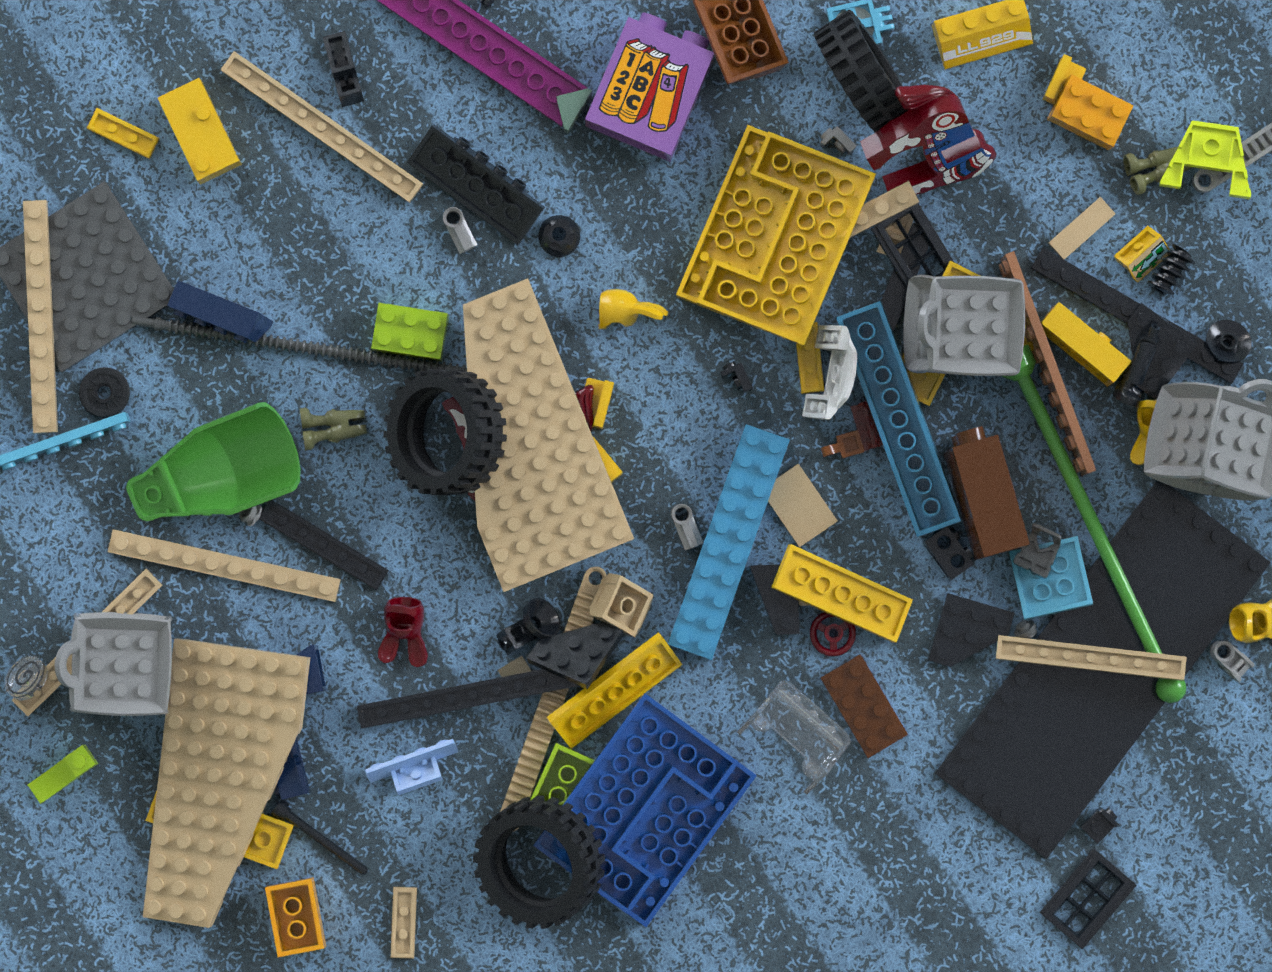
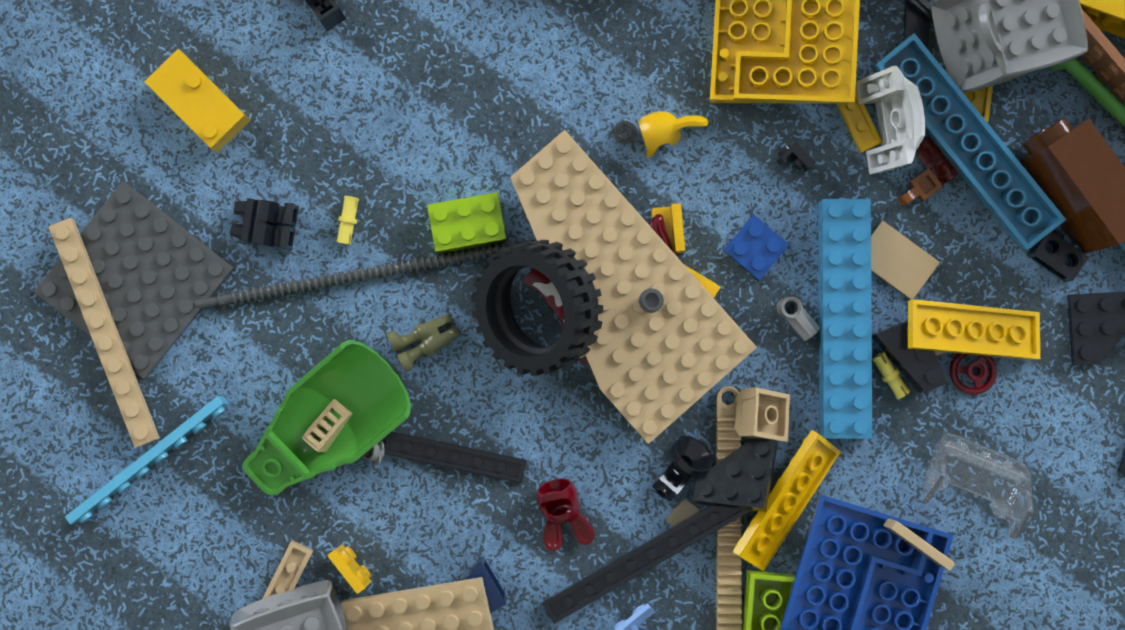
camera: 15 degrees left, 0 degrees up
(93, 382) = (178, 379): black wheel -> none
(123, 133) = (126, 129): yellow tile -> none
(196, 621) = (354, 574): none -> yellow plate
(213, 486) = (333, 431): none -> tan slope
(216, 264) = (258, 219): none -> black hips
(218, 312) = (275, 268): dark blue wedge -> none
(224, 565) = (365, 511): tan plate -> none
(300, 290) = (347, 220): none -> light yellow pin
(321, 127) = (314, 57): tan plate -> none
(459, 232) = (481, 111): light grey piece -> none
(477, 183) = (481, 59): black plate -> none
(551, 462) = (651, 300): none -> dark grey plate
(563, 247) = (573, 94): black piece -> none
(587, 297) = (624, 132): none -> clear smoke plate
(671, 447) = (756, 247): none -> blue plate
(717, 768) = (919, 544): none -> tan tile
(753, 609) = (890, 375): none -> light yellow pin
(864, 706) = (1028, 430): reddish brown plate -> none

